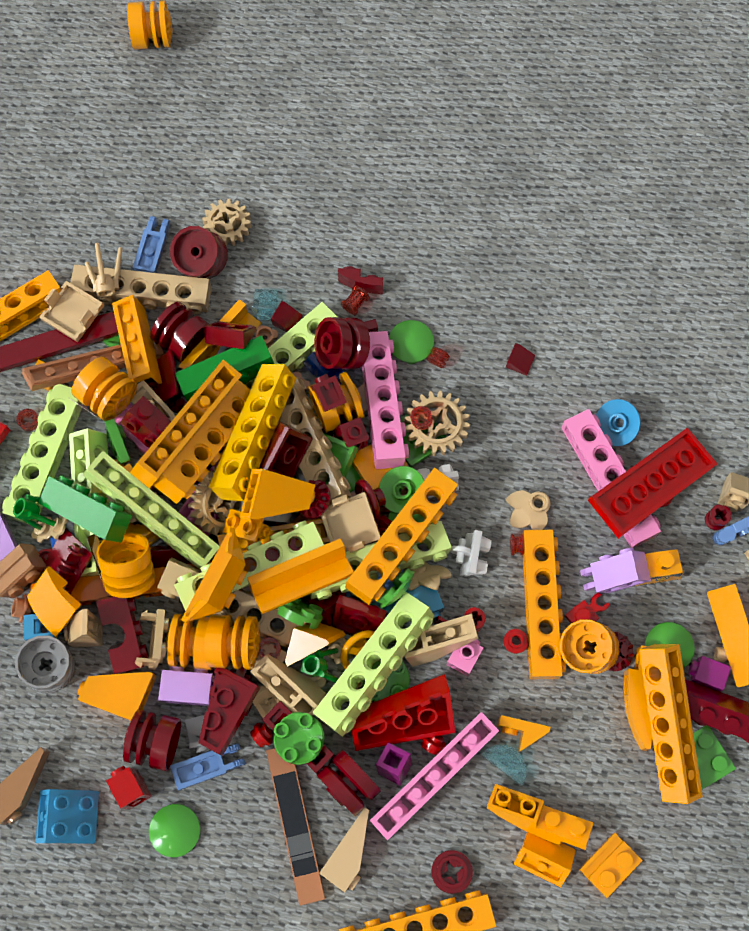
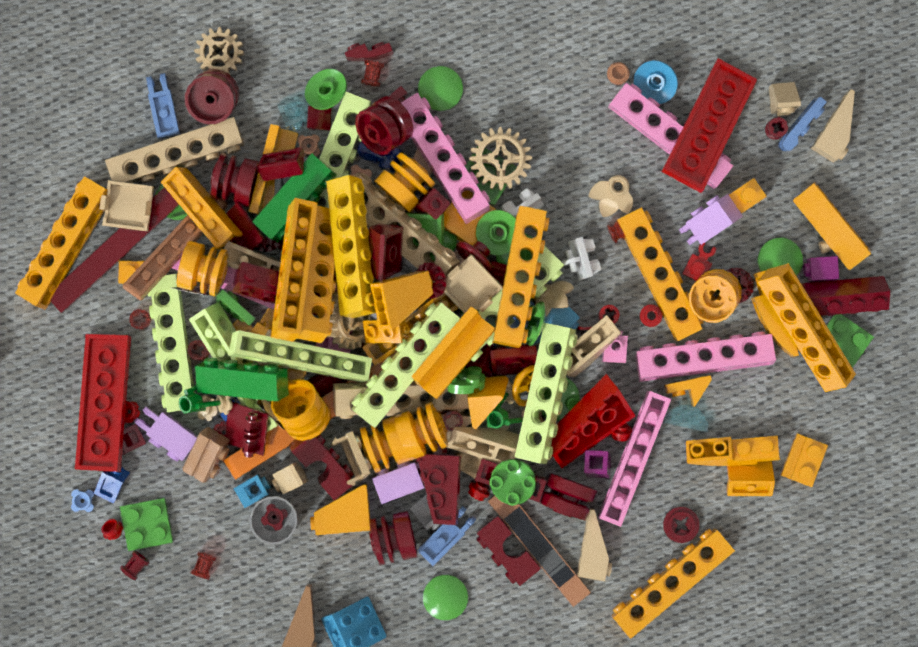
camera: 25 degrees left, 15 degrees up
(20, 608) = (225, 483): nougat plate -> none
(45, 652) = (275, 523): none -> dark red plate
(51, 602) = (254, 469): light orange slope -> none
(61, 465) = (192, 347): none -> clear red bush
(105, 285) = (145, 167): tan plant -> none
(128, 787) = (393, 583): red brick -> none
(219, 581) = (389, 391): light orange wedge -> none
(252, 789) = (518, 567): none -> dark red arch
(305, 294) = (320, 84): none -> bright green dish
(328, 392) = (399, 182): dark red bracket -> none
(427, 413) = (484, 170): clear red bush -> none
(438, 357) = (472, 93): clear red bush -> none
(520, 359) = (545, 60): dark red slope -> none
(562, 719) = (649, 371): none -> bright pink brick
(584, 400) = (618, 73): none -> nougat plate

